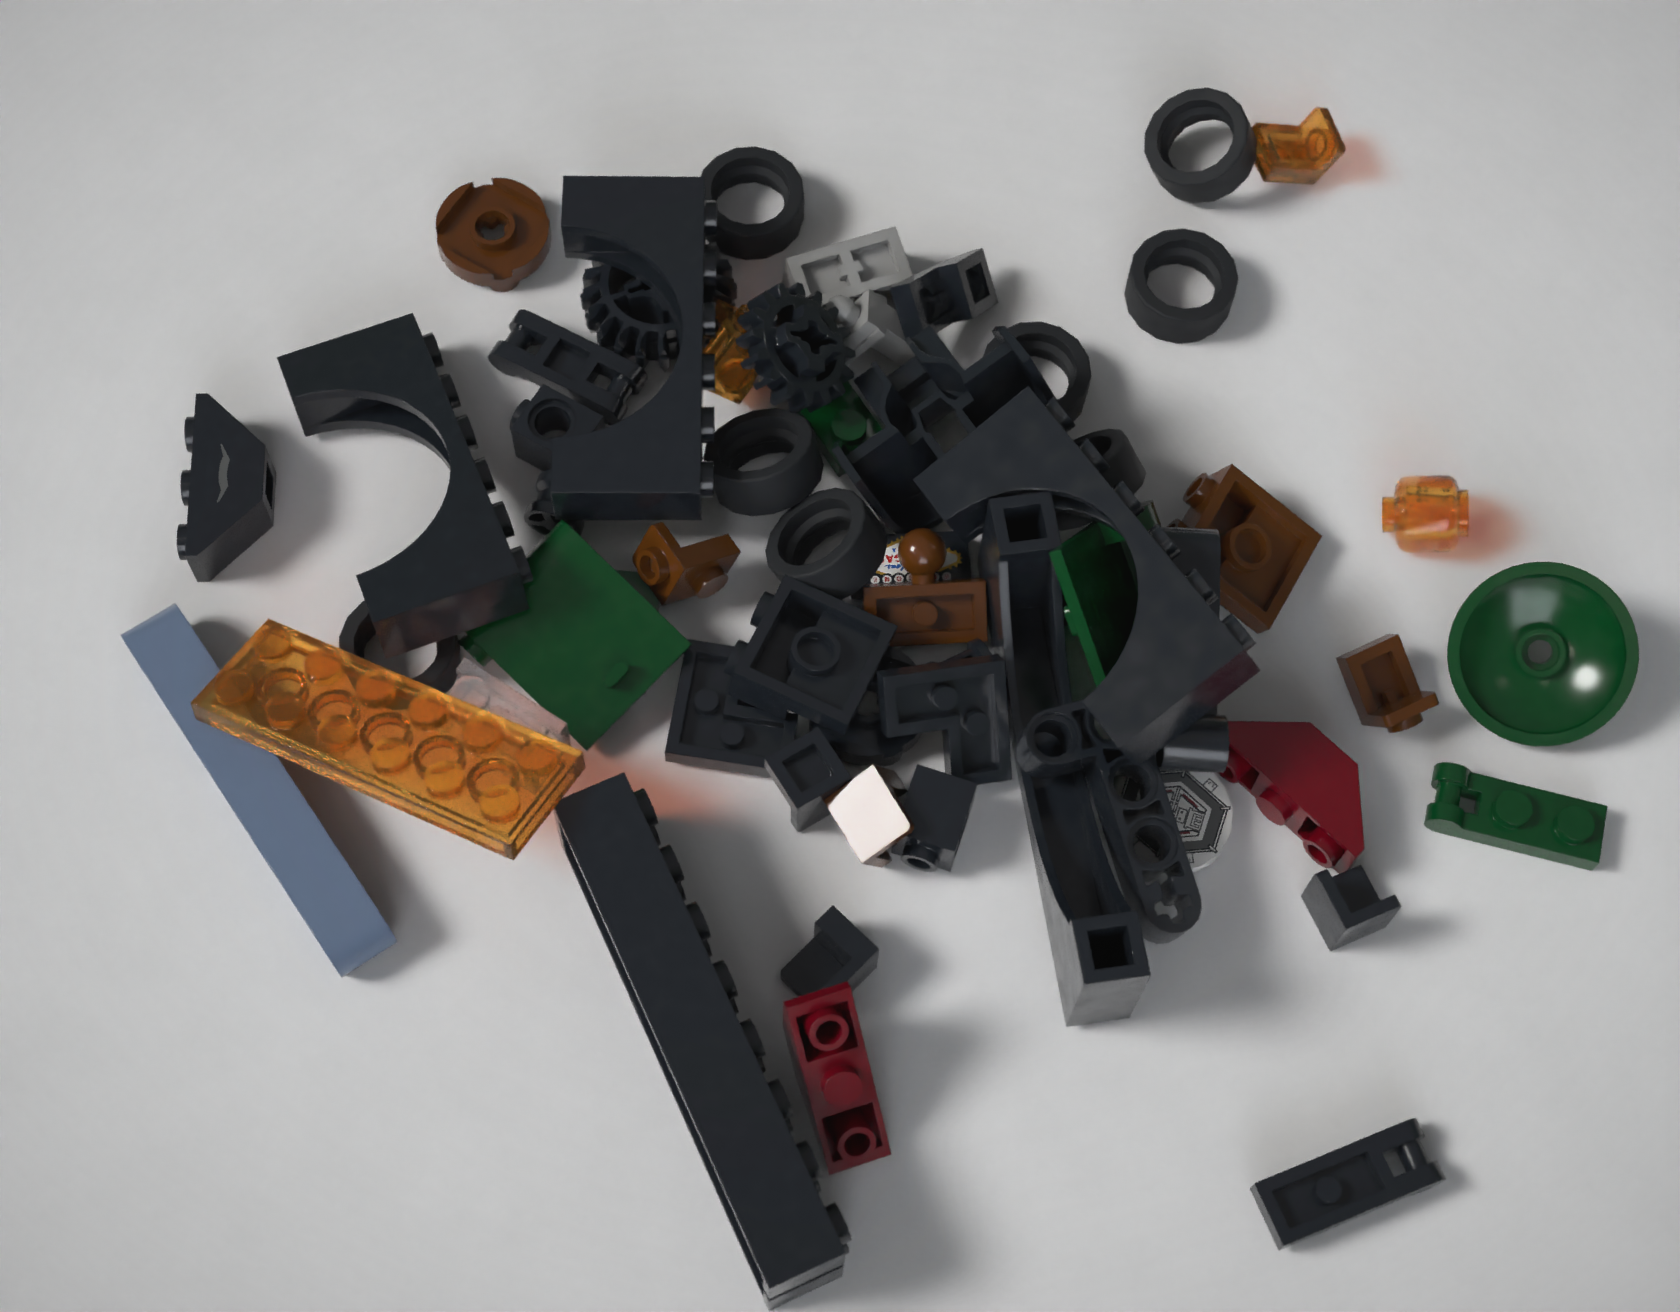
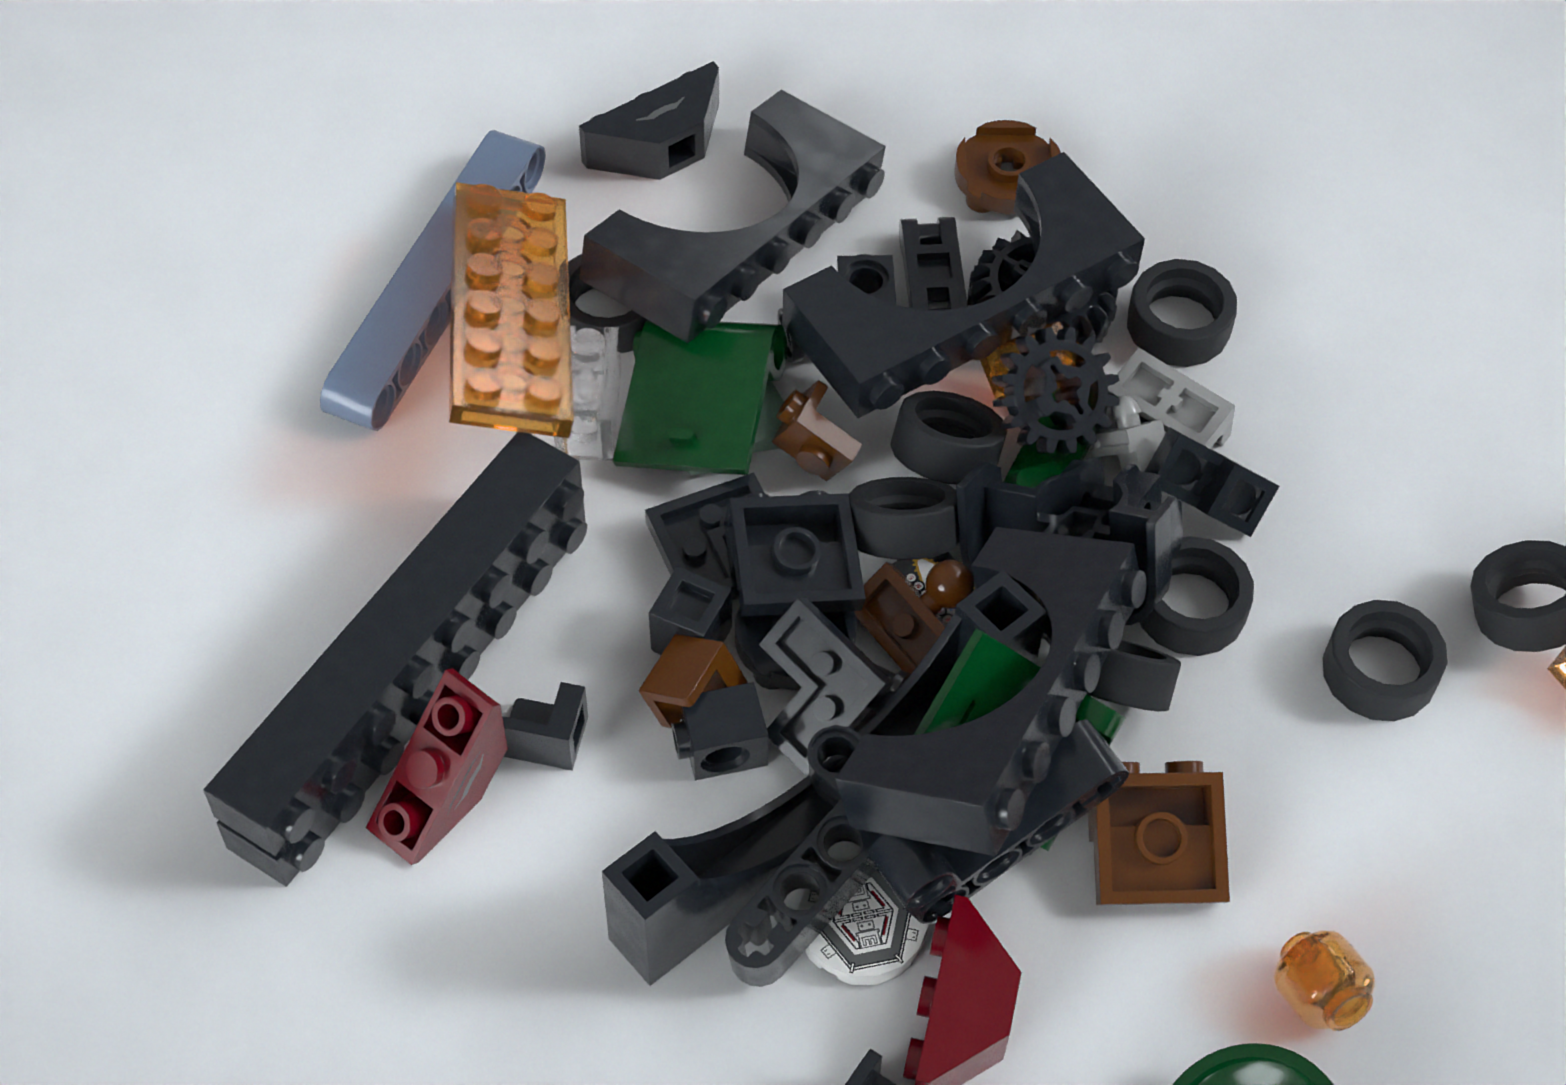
camera: 60 degrees right, 10 degrees down
(1384, 685) = (1119, 1030): reddish brown bracket -> none

